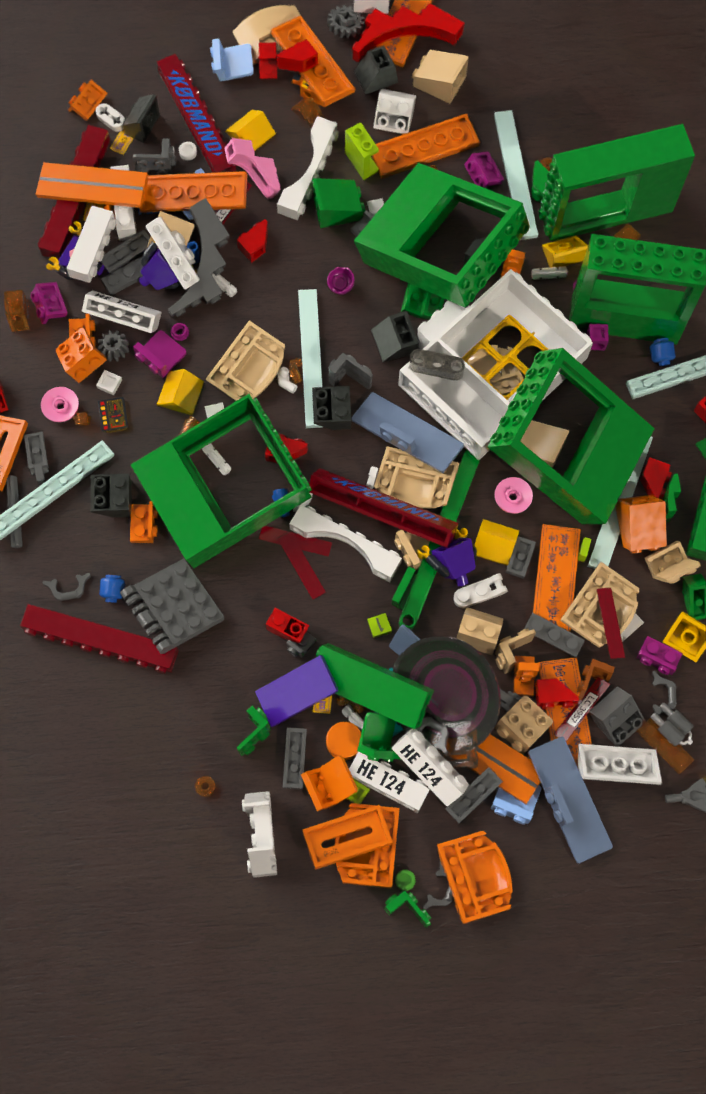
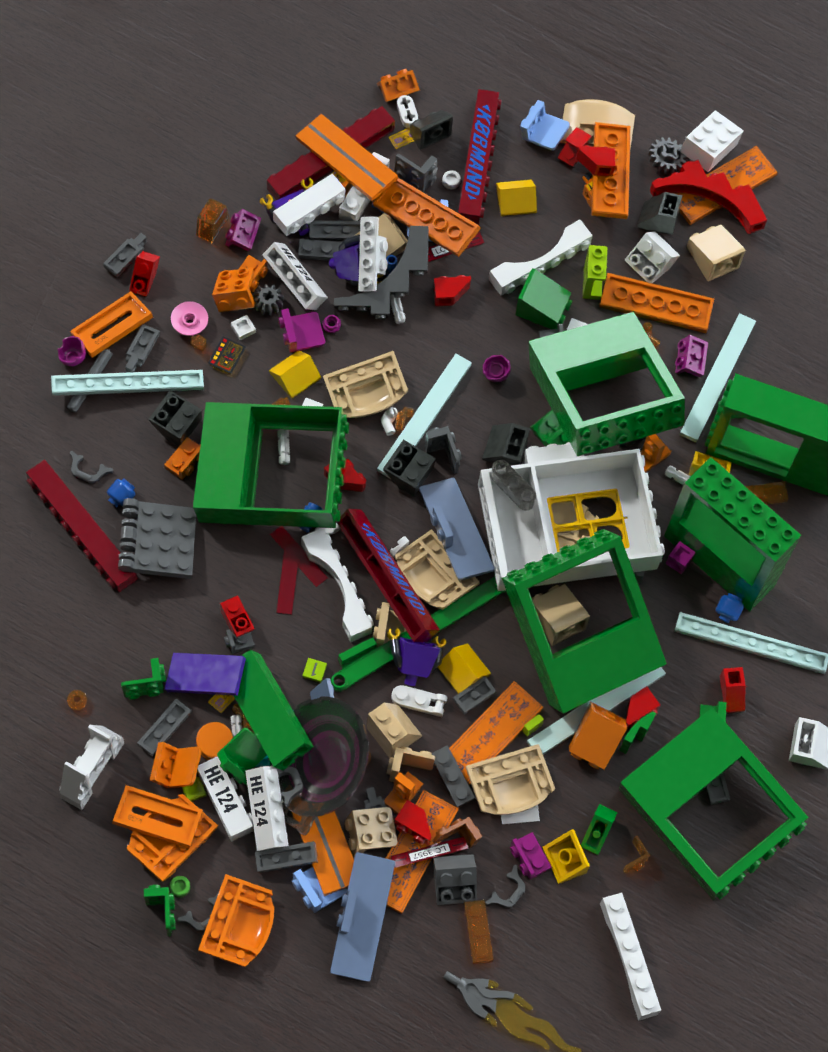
camera: 30 degrees right, 5 degrees down
(260, 169) = (498, 233): bright pink arch -> none
(309, 110) = (579, 210): clear orange bracket -> none
(515, 487) = (506, 632): bright pink dish -> none
(610, 623) = (506, 798): dark red sticker -> none
(618, 764) = (425, 917): white slope -> none
(671, 563) = (597, 785): tan bracket -> none
(674, 727) = (503, 918): dark grey piece -> none

